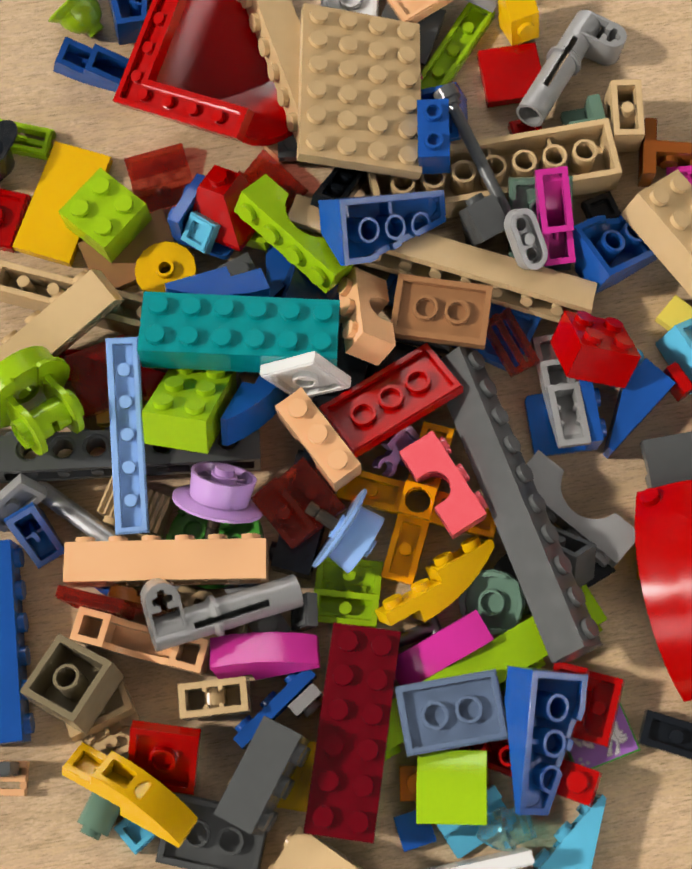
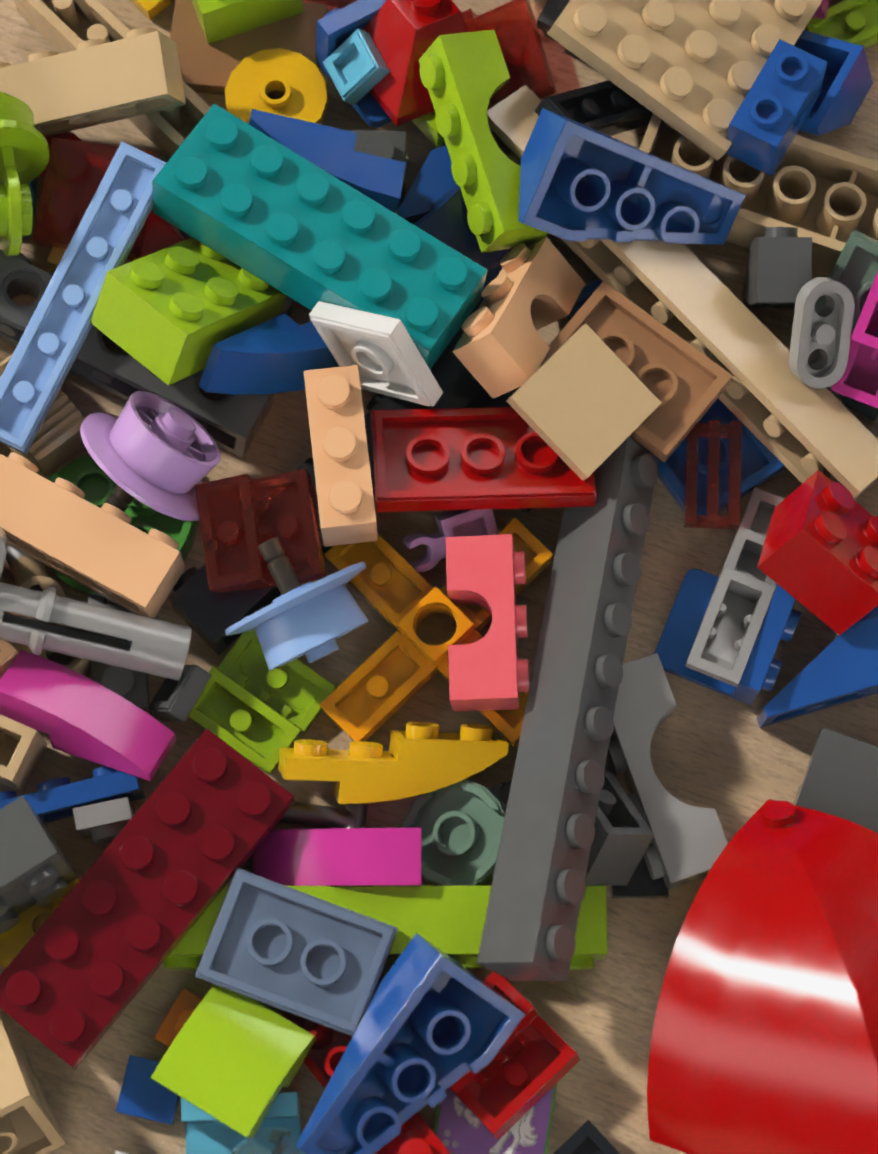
camera: 25 degrees right, 0 degrees up
(429, 341) = (584, 402): none -> tan tile
(451, 91) = (841, 63): dark grey piece -> none

